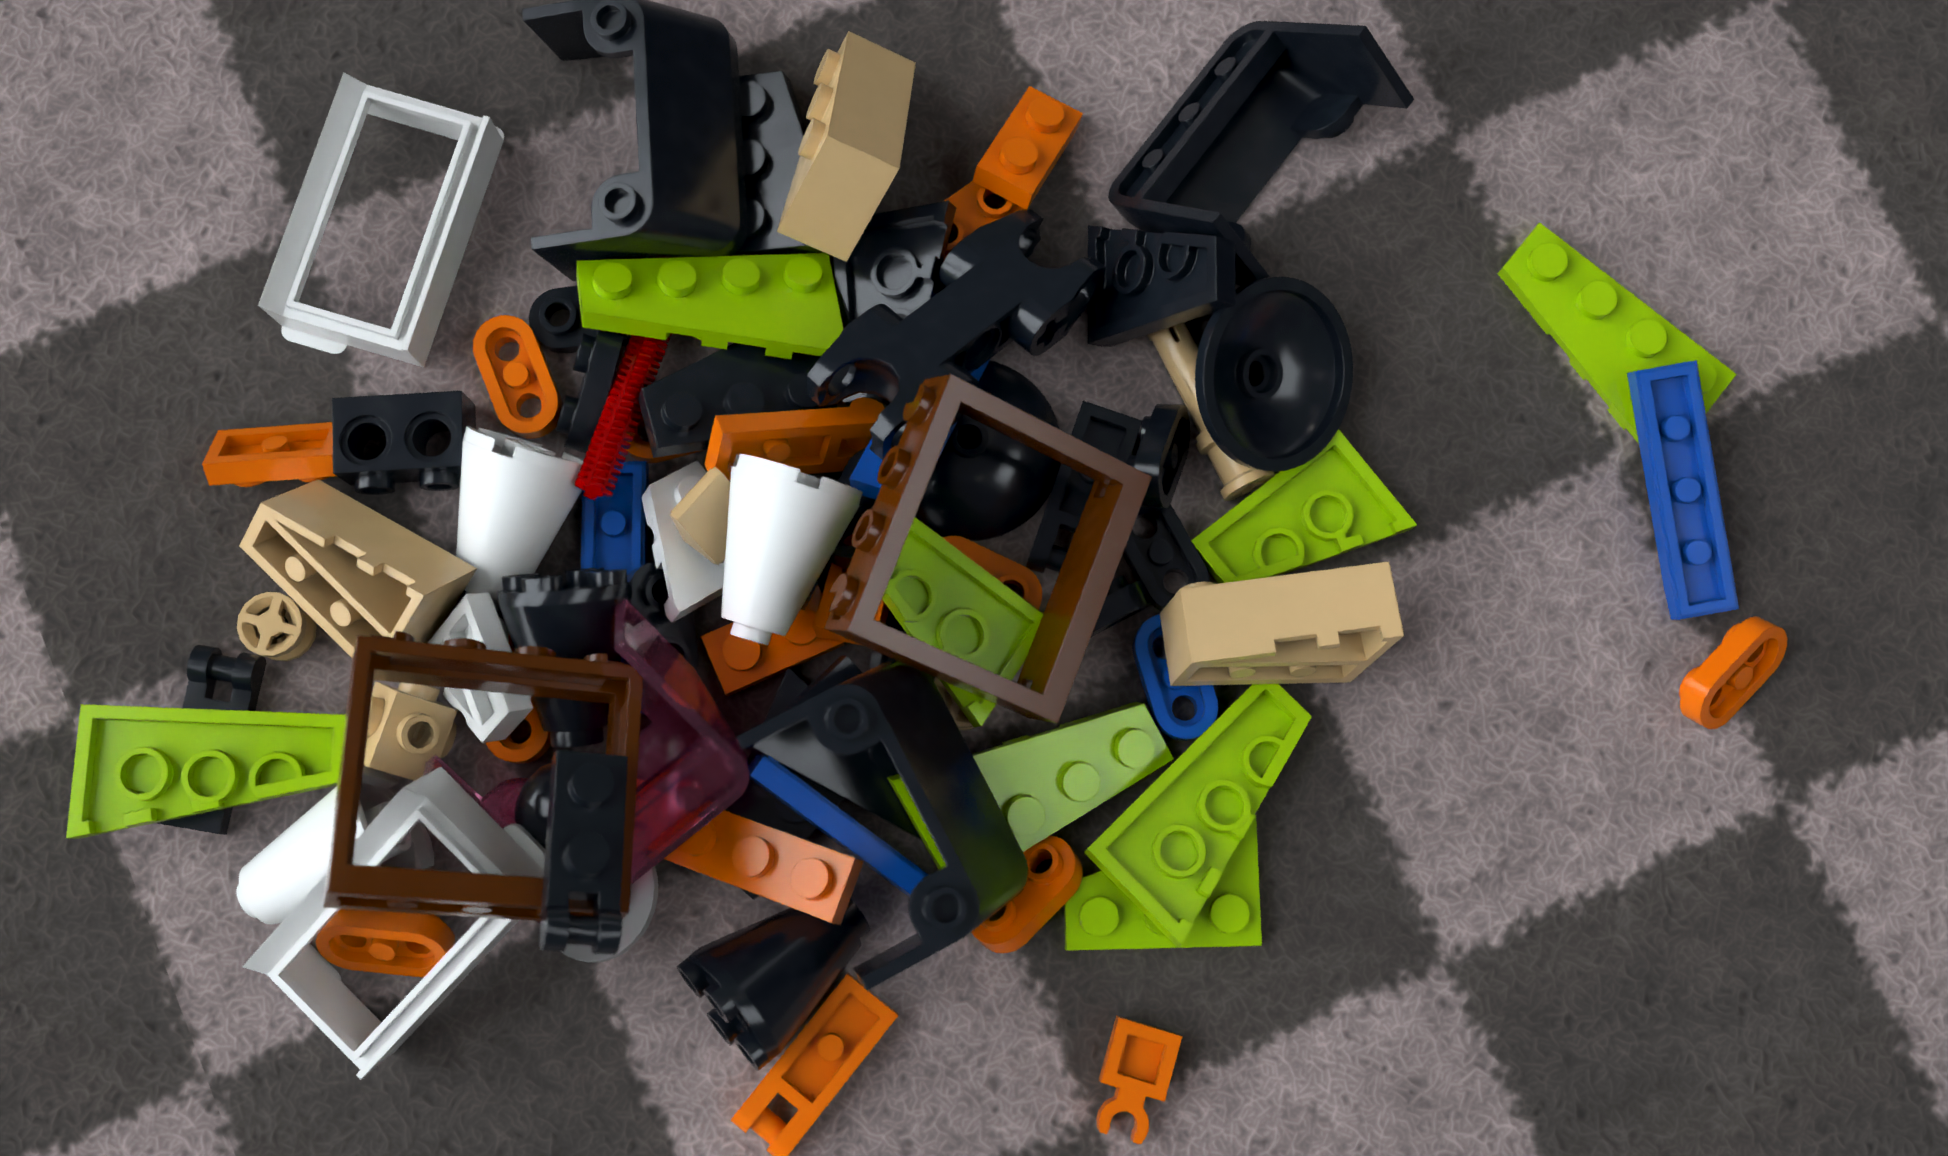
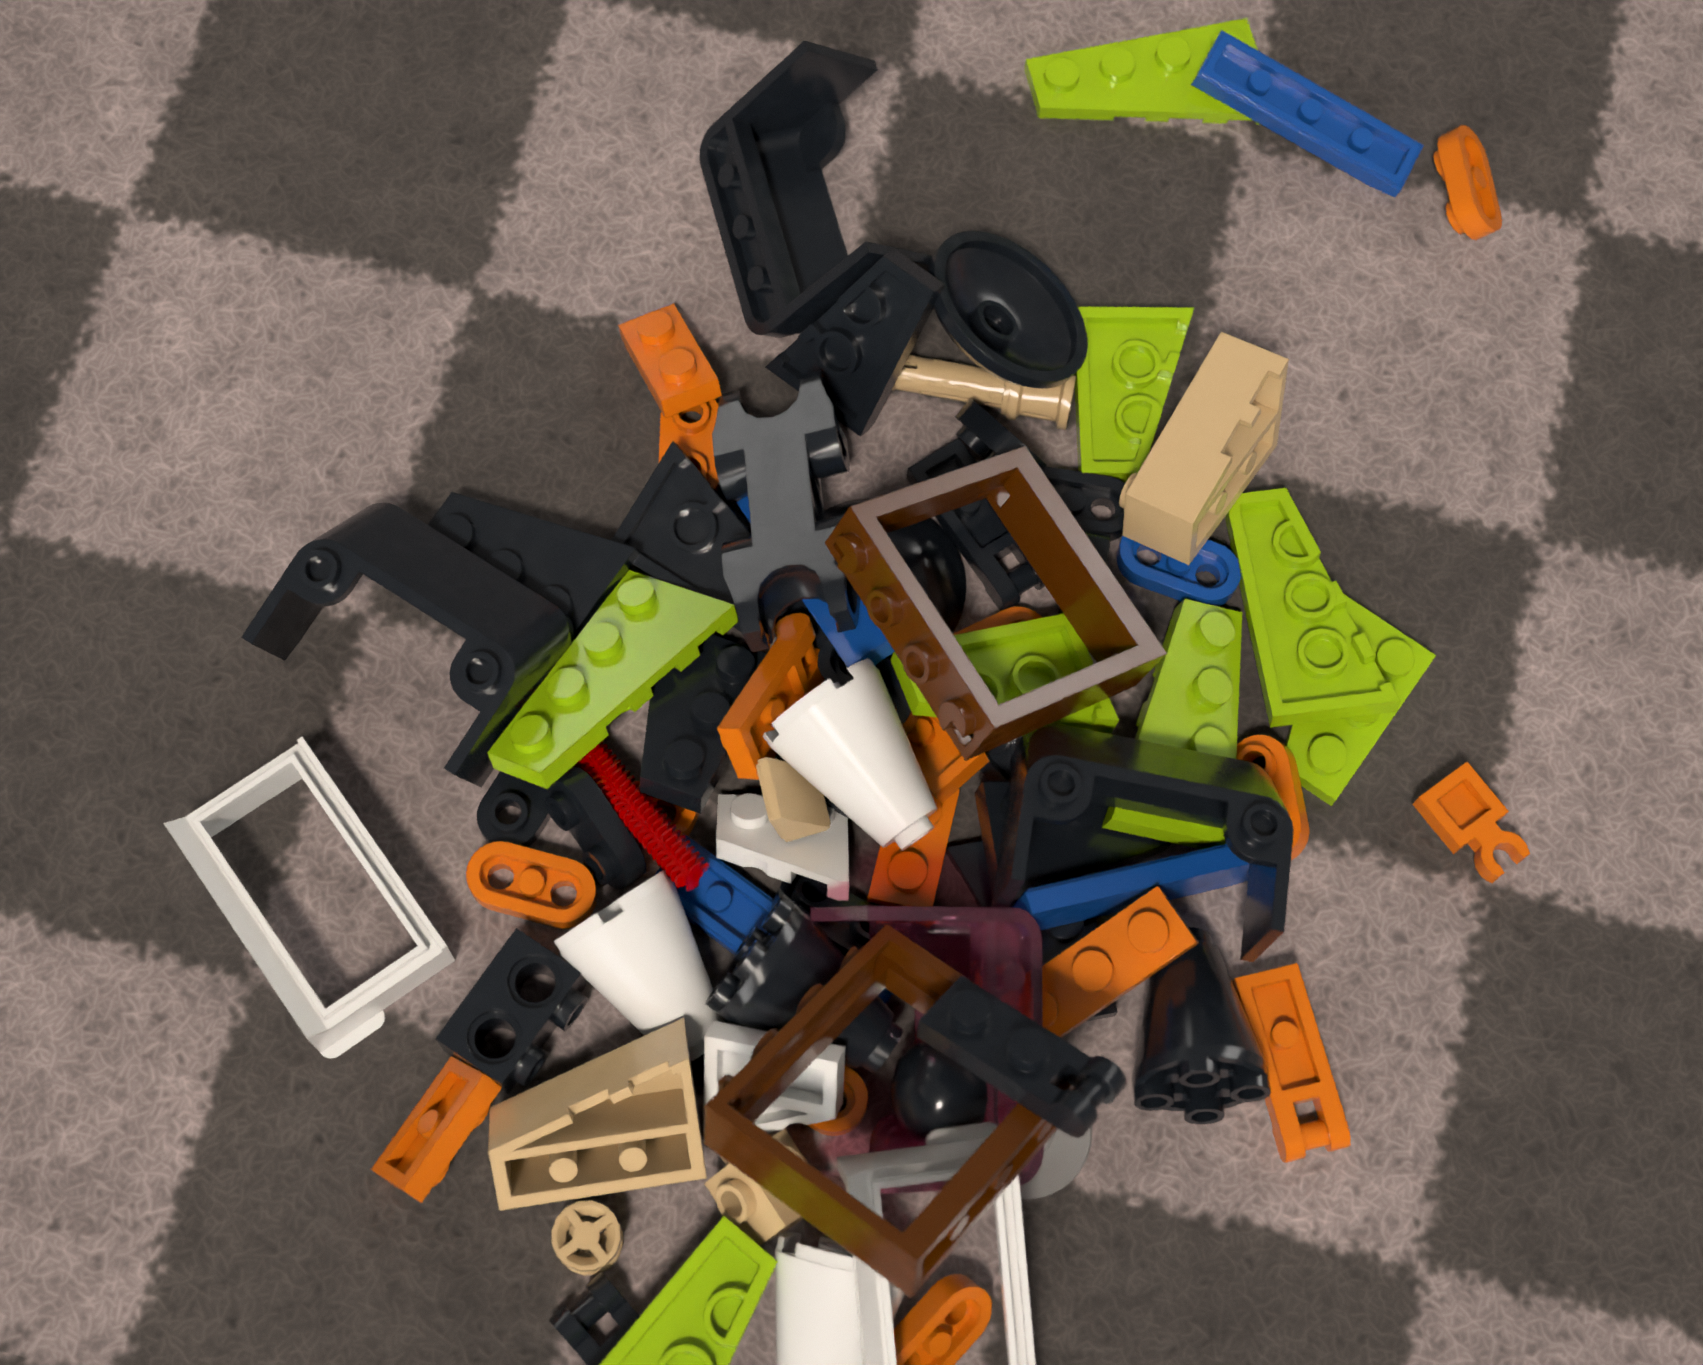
camera: 50 degrees left, 10 degrees down
(849, 145) = (569, 477): tan wedge -> none

